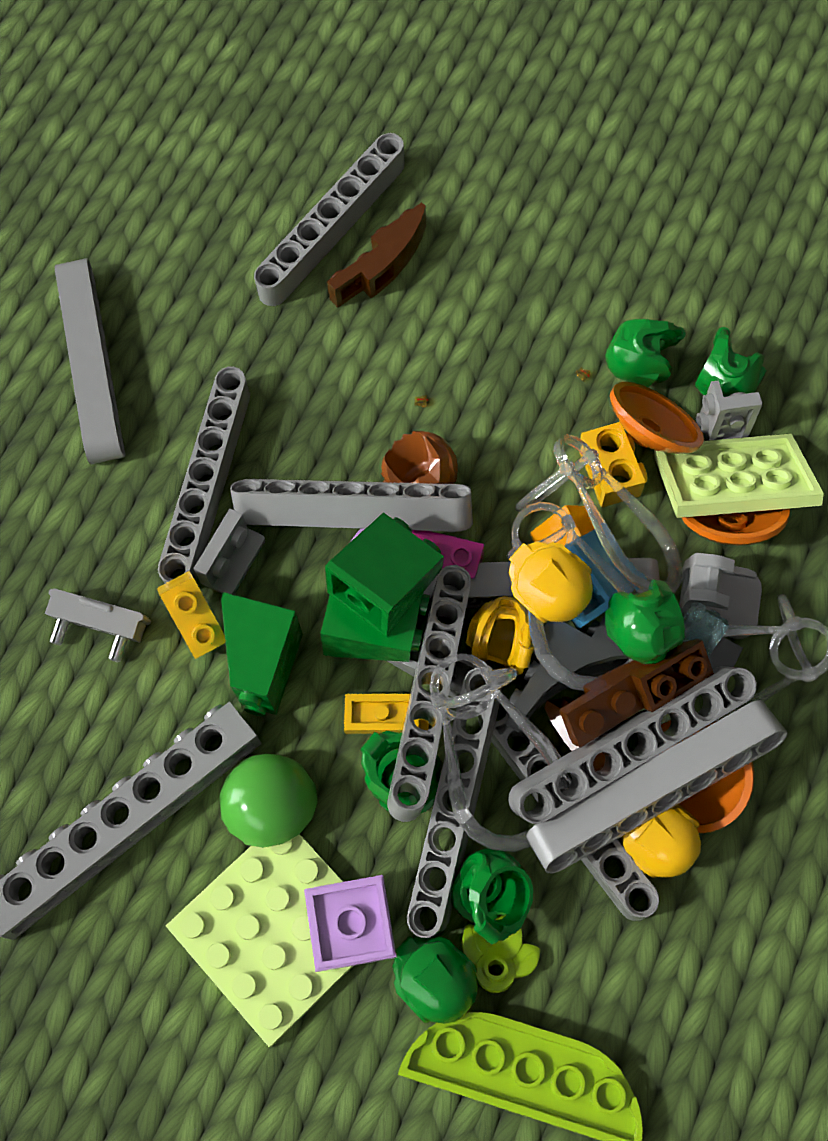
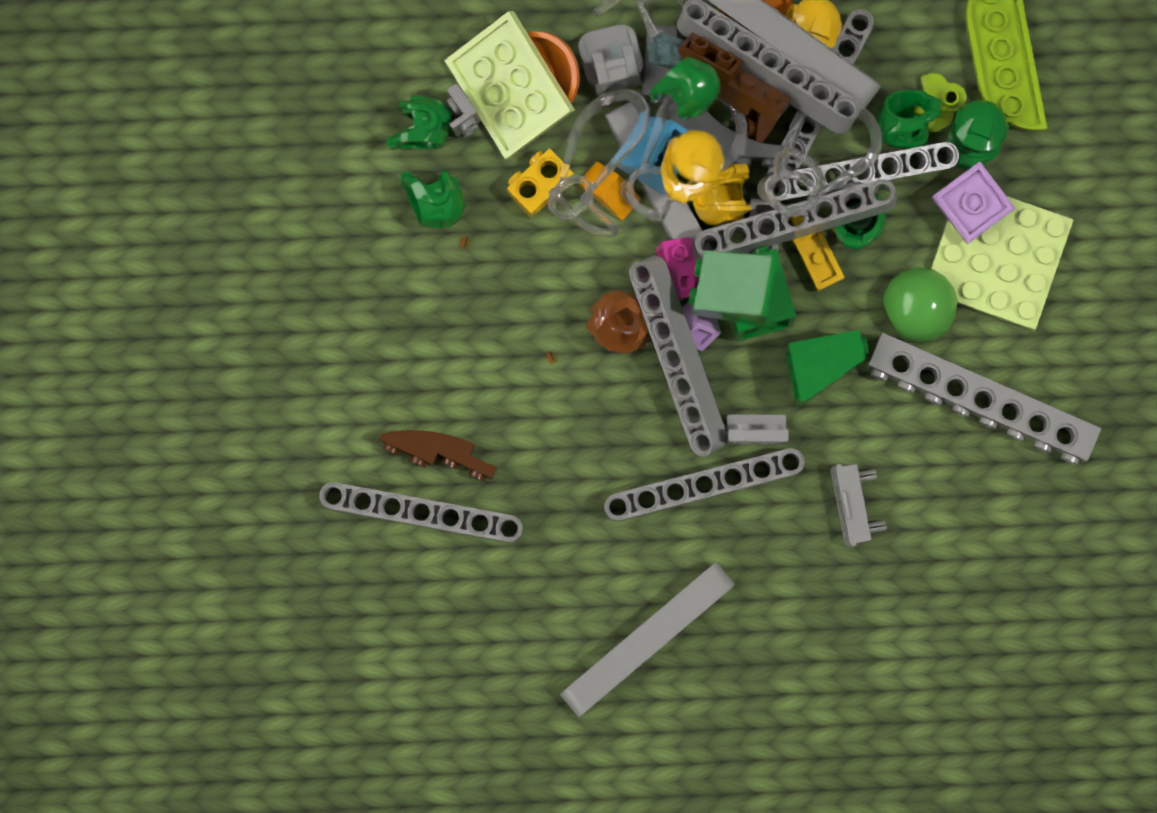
camera: 120 degrees left, 15 degrees up
(192, 614) = (819, 427): yellow brick -> none
(655, 419) = (491, 162): orange dish -> none

